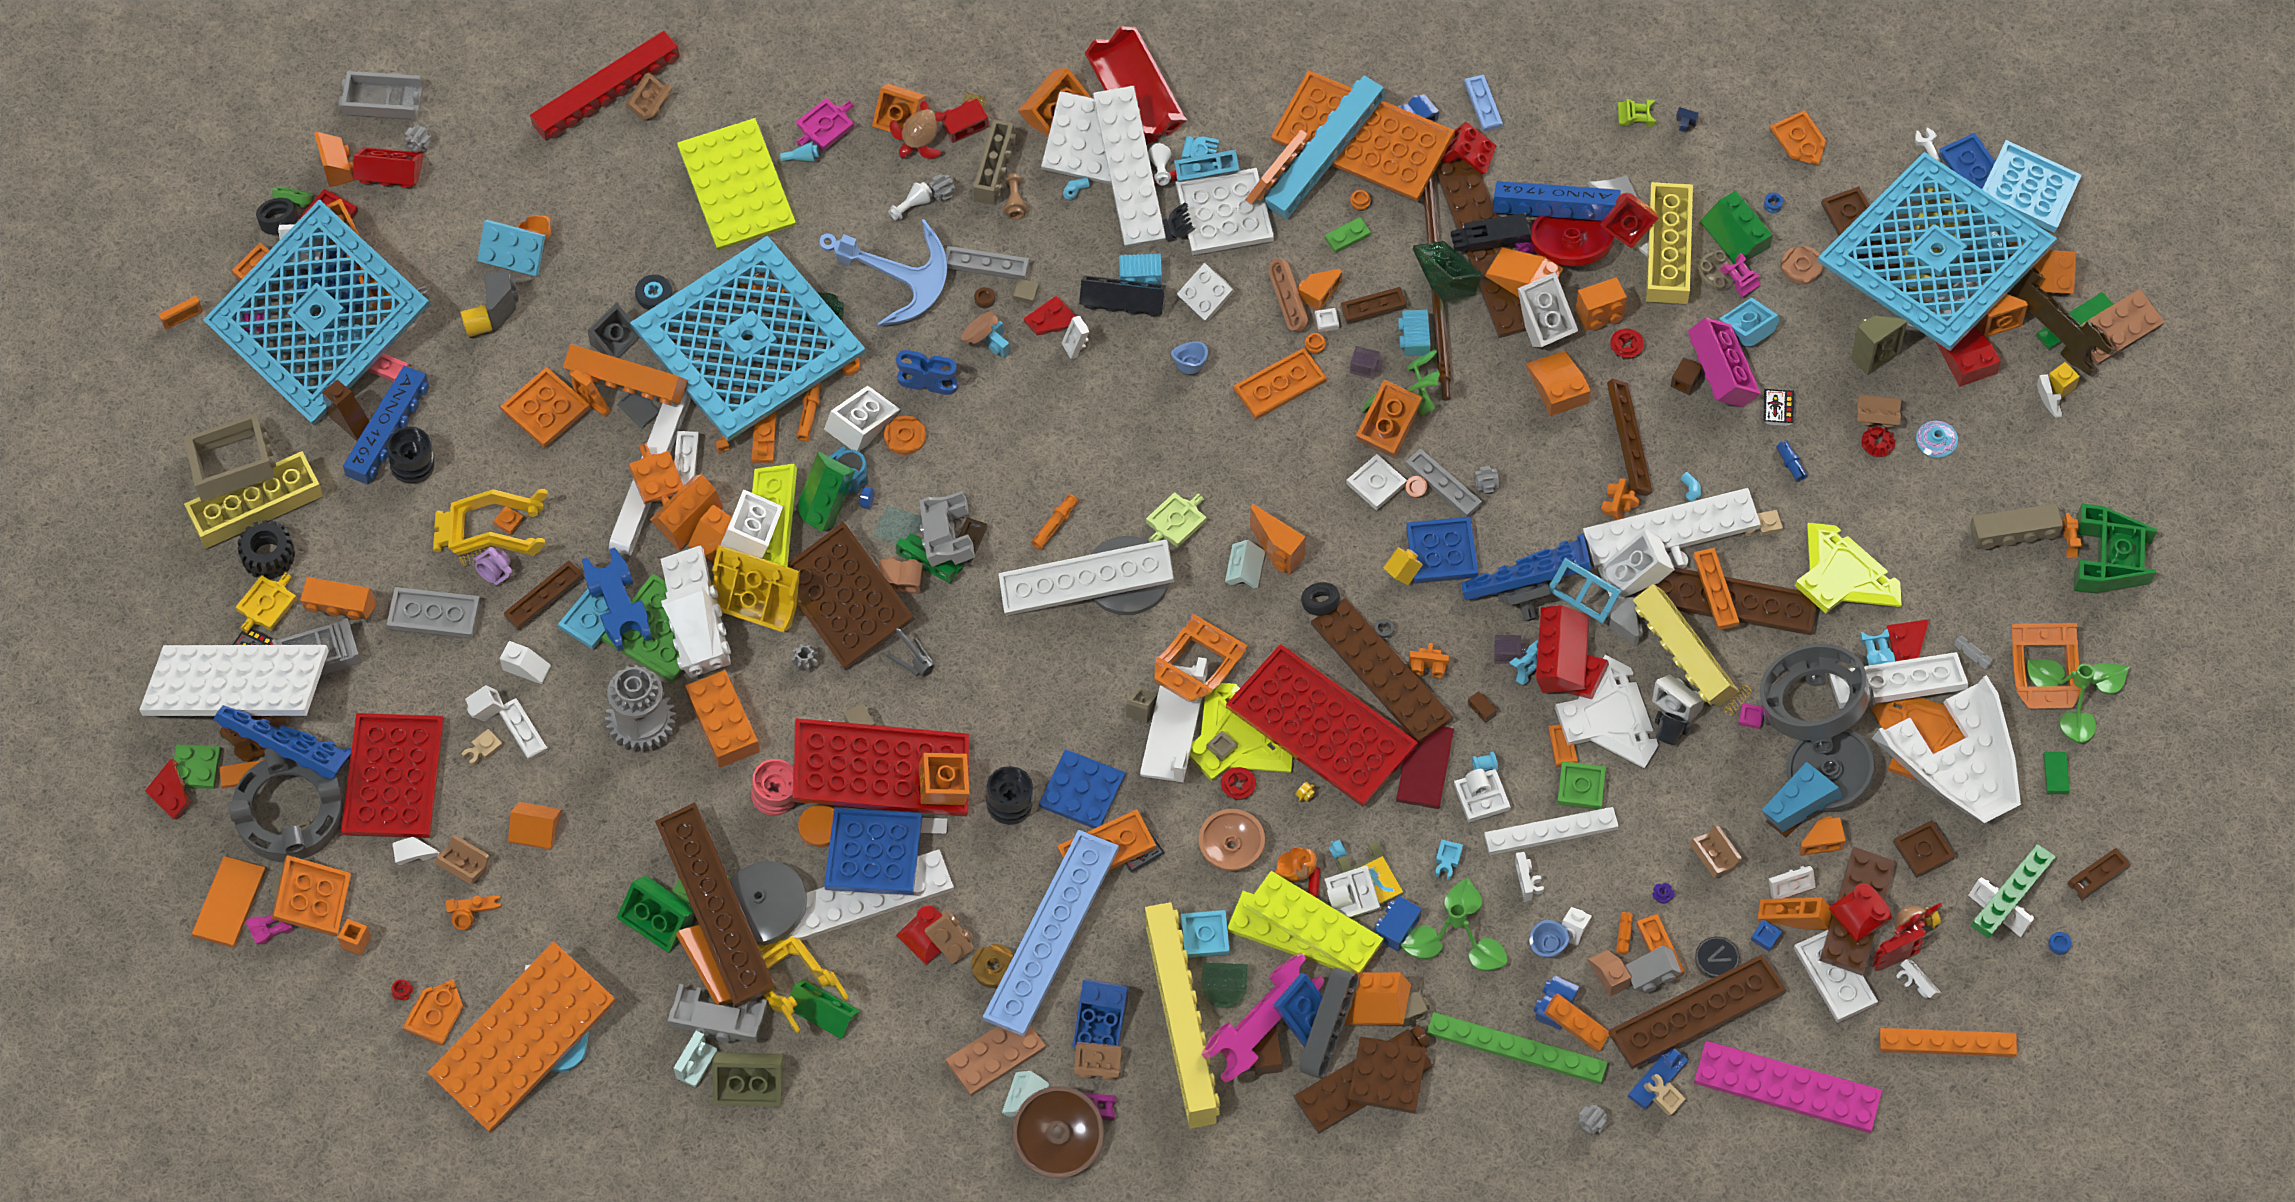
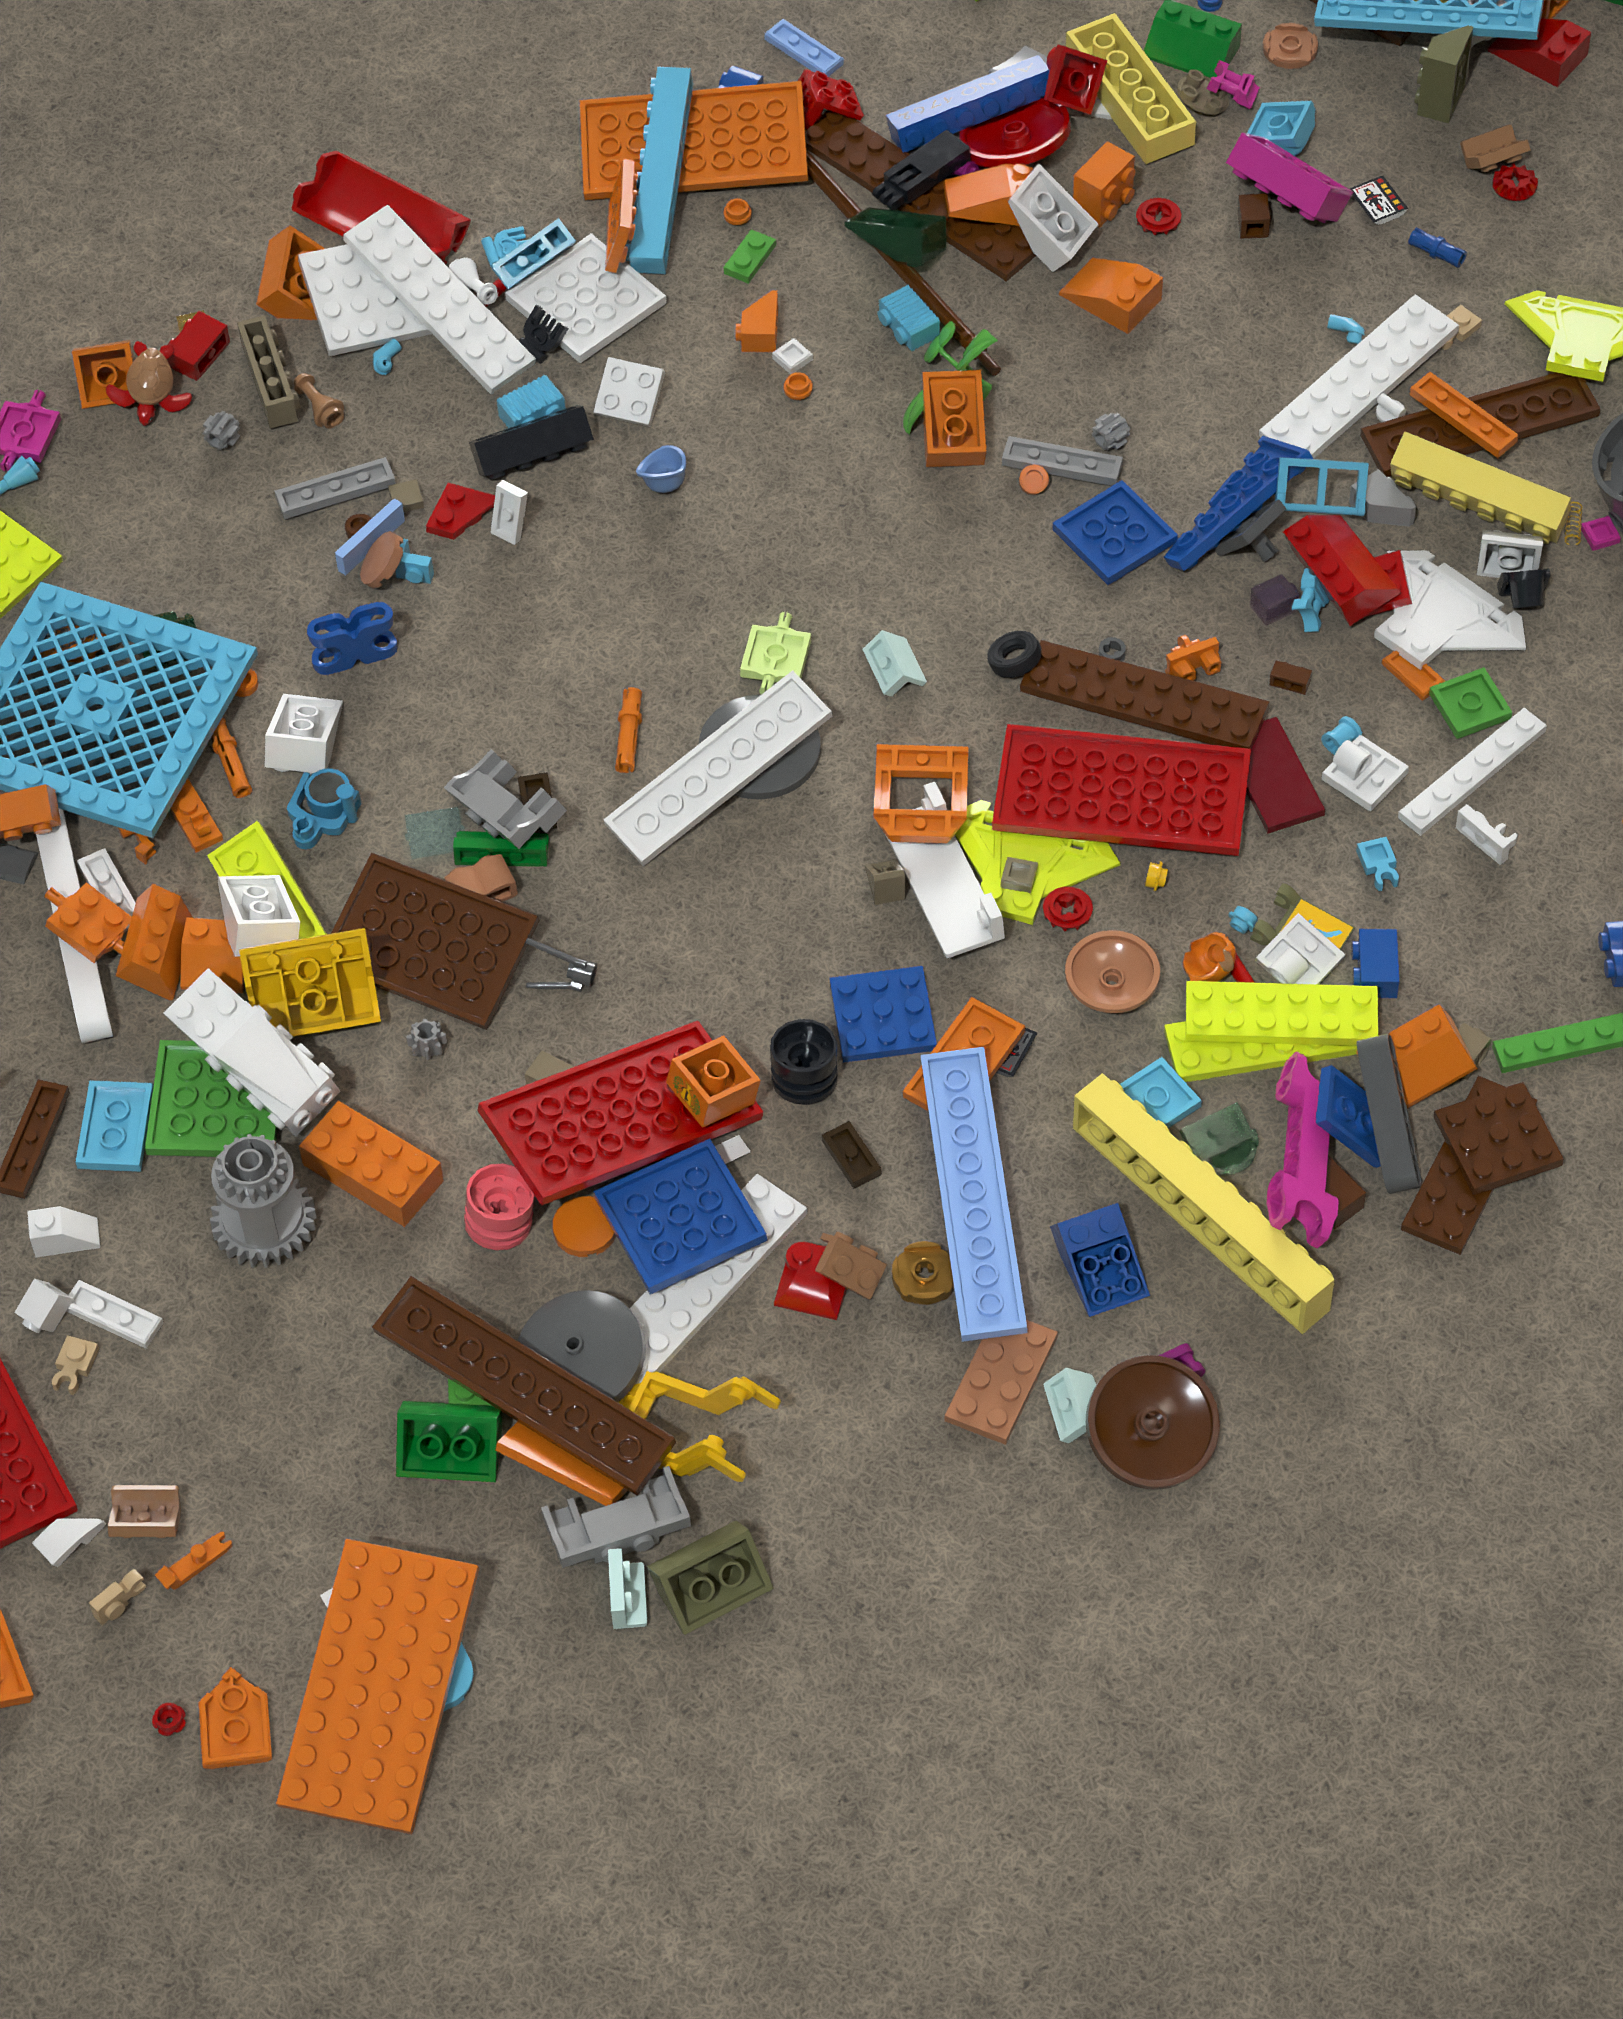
camera: 30 degrees left, 5 degrees down
(354, 937) = (61, 1685): orange brick -> none
(414, 902) = (113, 1600): none -> tan plate
(462, 919) = (192, 1586): orange plate -> none
(533, 825) = (209, 1421): orange slope -> none
(621, 614) = (153, 1103): blue piece -> none
(823, 1008) = (751, 1439): green panel -> none
(824, 492) = (319, 832): green slope -> none
(867, 497) = (374, 818): blue tile -> none
(899, 438) = (378, 728): orange tile -> none
(918, 195) = (197, 453): white piece -> none
(924, 281) = (275, 542): light blue piece -> none
(995, 304) = (358, 545): none -> light blue tile
(1001, 868) = (851, 1154): none -> dark brown plate
(1097, 1060) = (1136, 1313): medium nougat bracket -> none
(1279, 383) = (787, 450): orange tile -> none
(1280, 542) = (915, 611): orange slope -> none
(1288, 295) = (728, 349): nougat plate -> none
(1365, 362) = (874, 377): clear purple brick -> none
(1373, 305) = (837, 313): reddish brown plate -> none
(1376, 482) = (983, 498): white plate -> none
(1403, 565) = (1087, 567): yellow brick -> none
(1420, 1036) = (1500, 1074): reddish brown tile -> none
(1459, 902) = (1431, 898): bright green plant -> none
(1549, 939) = (1568, 886): medium blue helmet -> none
(1575, 924) = (1581, 859): white bracket -> none
(1623, 500) = (1270, 371): orange hips -> none
(1629, 437) = (1231, 304): reddish brown plate -> none
(1637, 565) = (1357, 432): white slope -> none
(1937, 446) = (1575, 150): dish -> none

